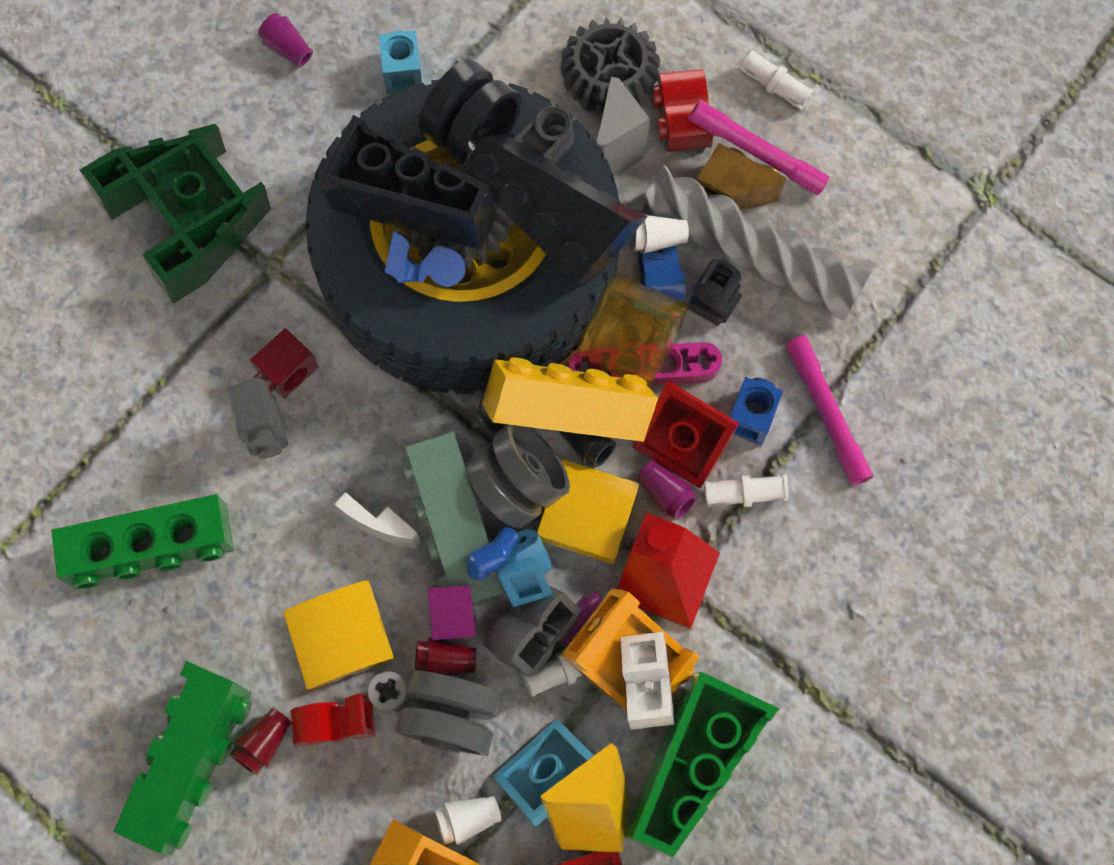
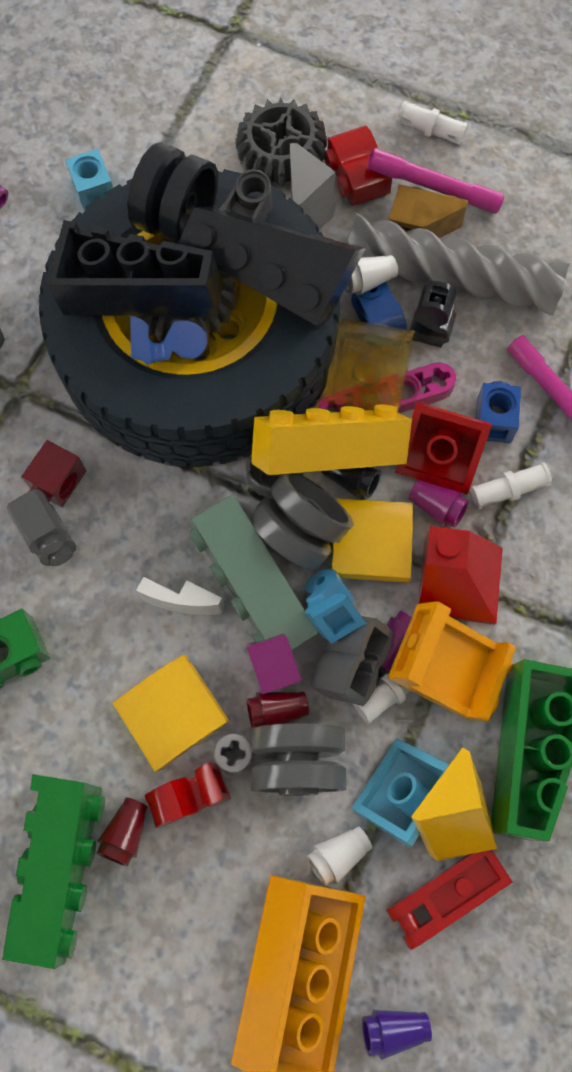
camera: 10 degrees left, 0 degrees up
(493, 555) = (299, 600): blue arm -> none
(647, 681) = (475, 681): white slope -> none

